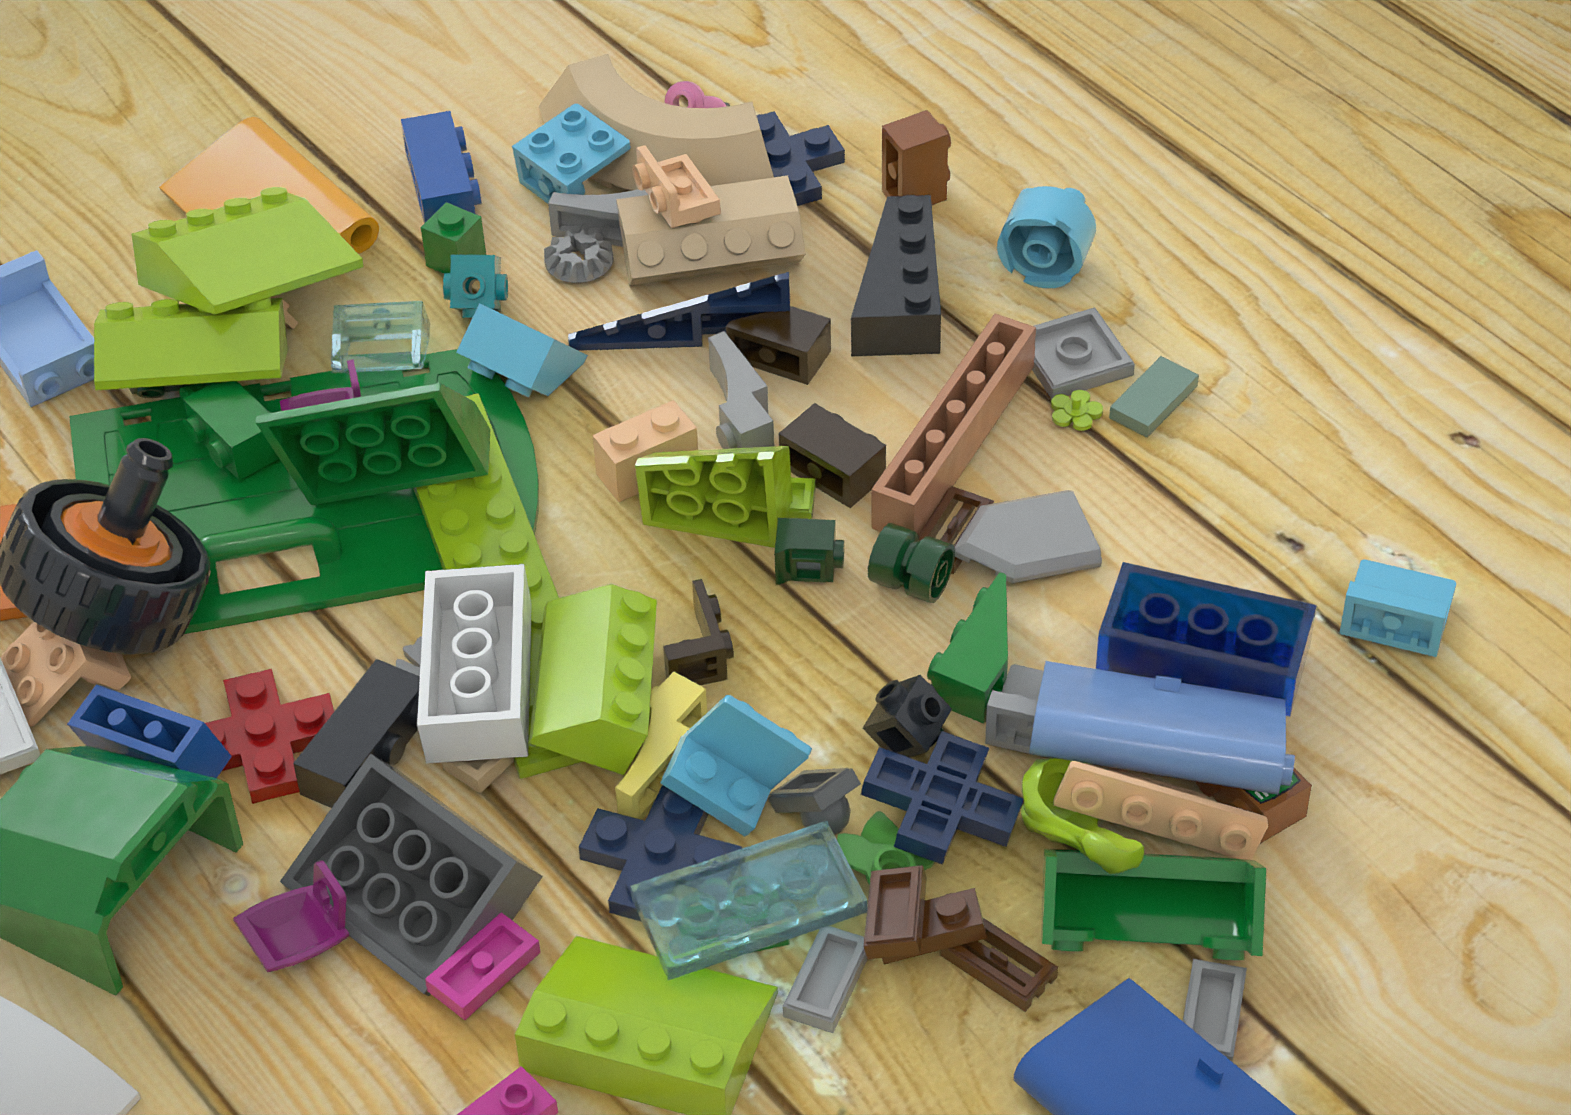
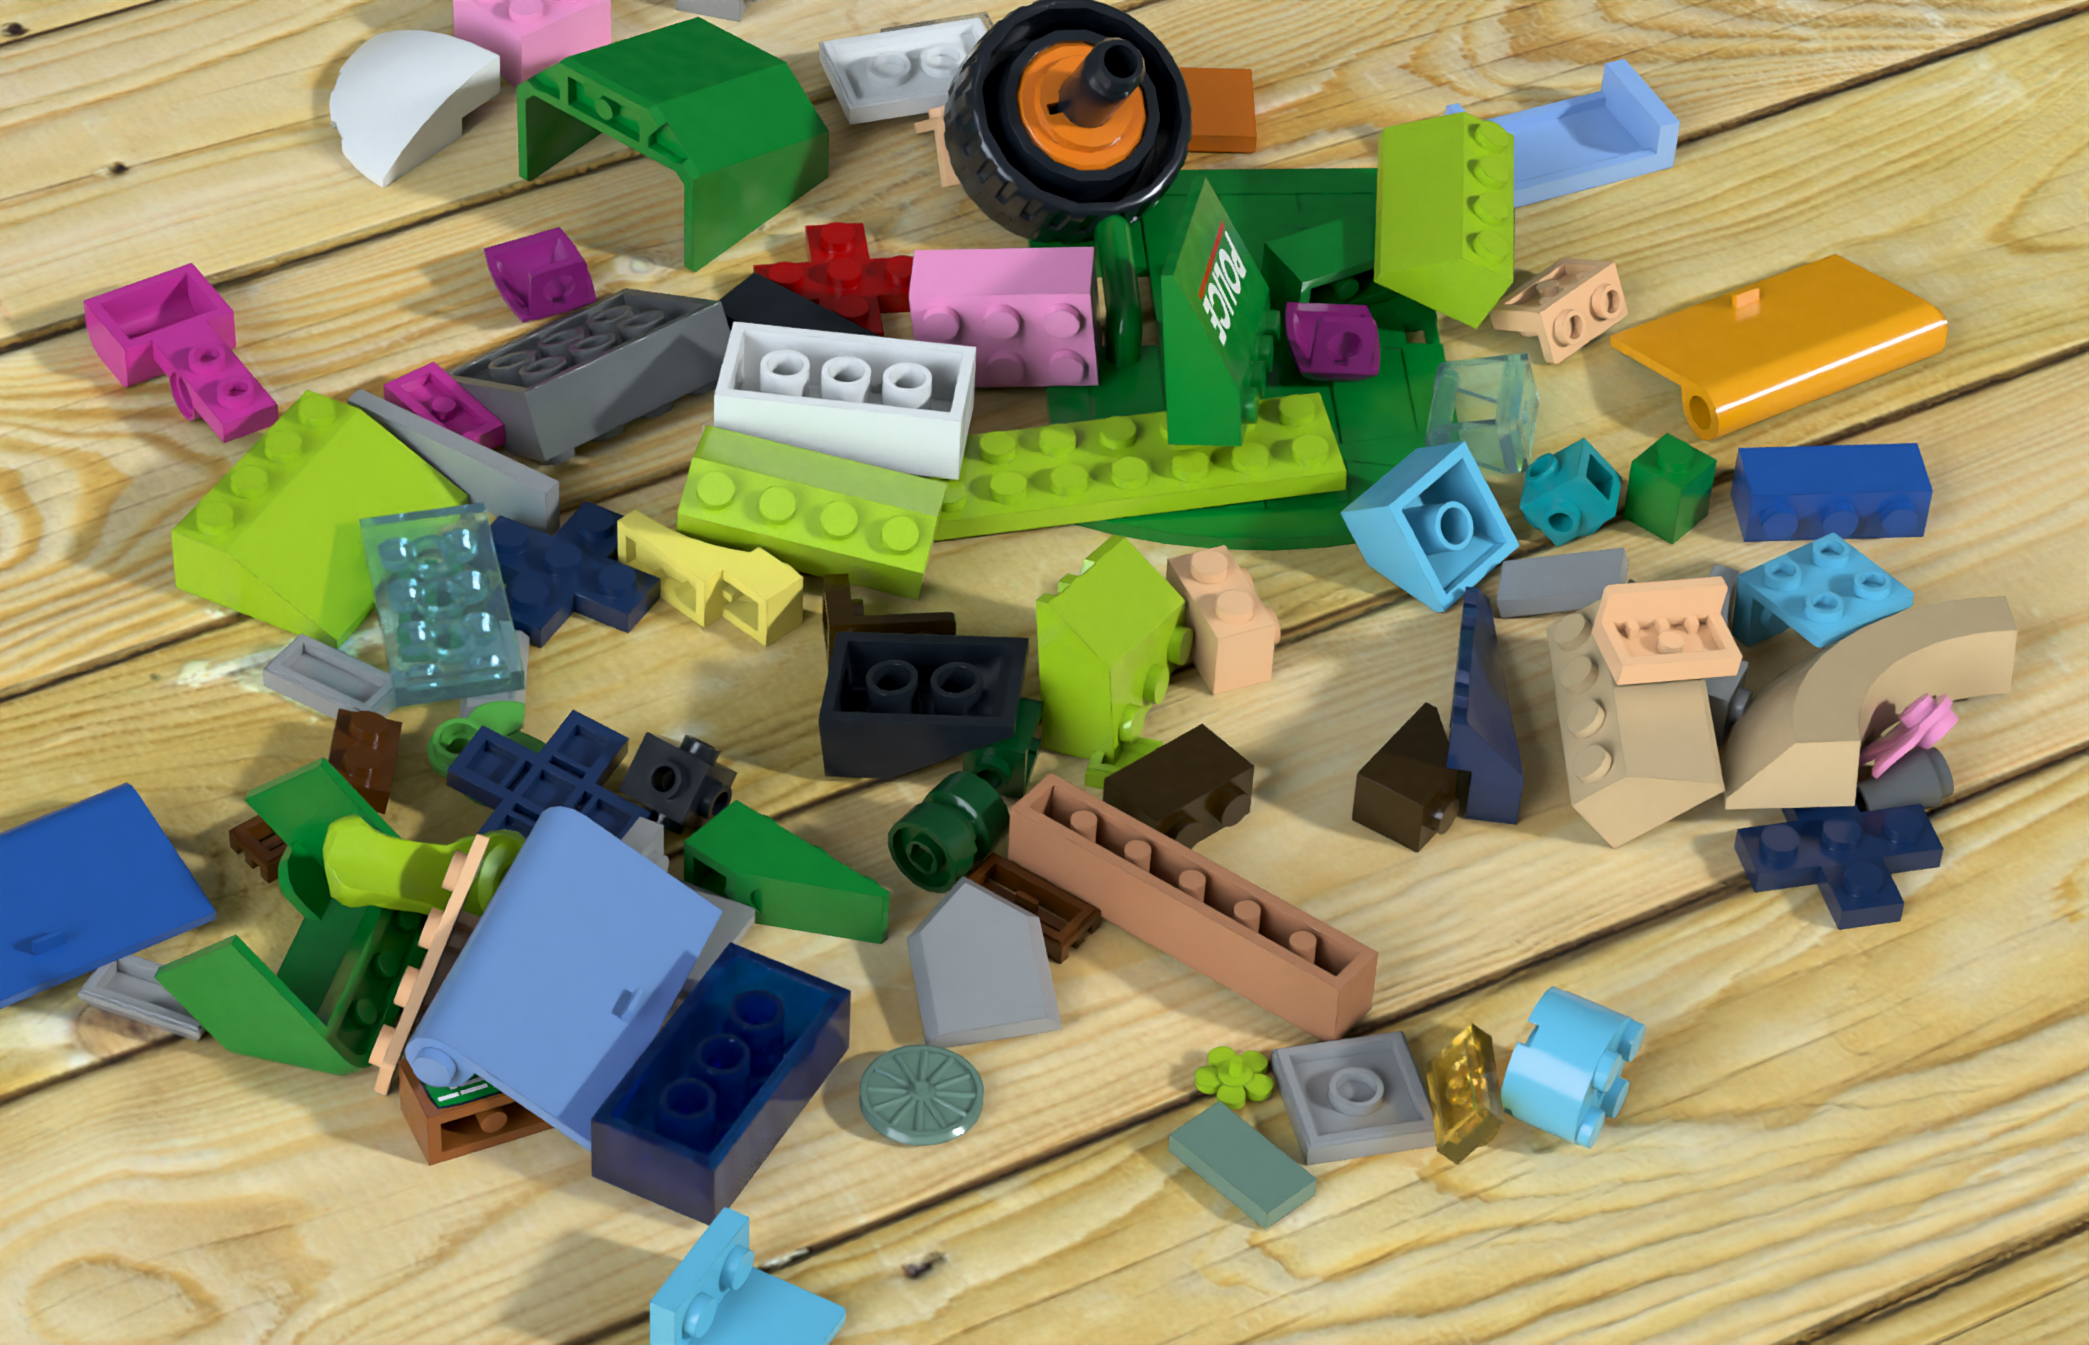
camera: 95 degrees right, 5 degrees down
(147, 732) = (819, 172): blue brick -> none
(241, 252) = (1588, 244): lime slope -> none
(344, 589) = (1020, 307): none -> bright pink brick
(553, 937) = (478, 471): none -> light grey tile
(562, 287) = (1558, 581): none -> light grey tile
(733, 763) = (633, 603): medium azure bracket -> none
(745, 414) = (1306, 724): light grey slope -> none
(798, 583) = (916, 700): none -> black slope
(817, 796) = (576, 682): dark grey tile -> none
(895, 912) = (370, 710): reddish brown tile -> none
(900, 287) = (1525, 916): black wedge -> none
(915, 157) = (1760, 947): dark orange brick -> none
(1073, 289) = (1465, 1094): none -> clear yellow plate
(1152, 546) = (921, 1095): none -> sand green wheel

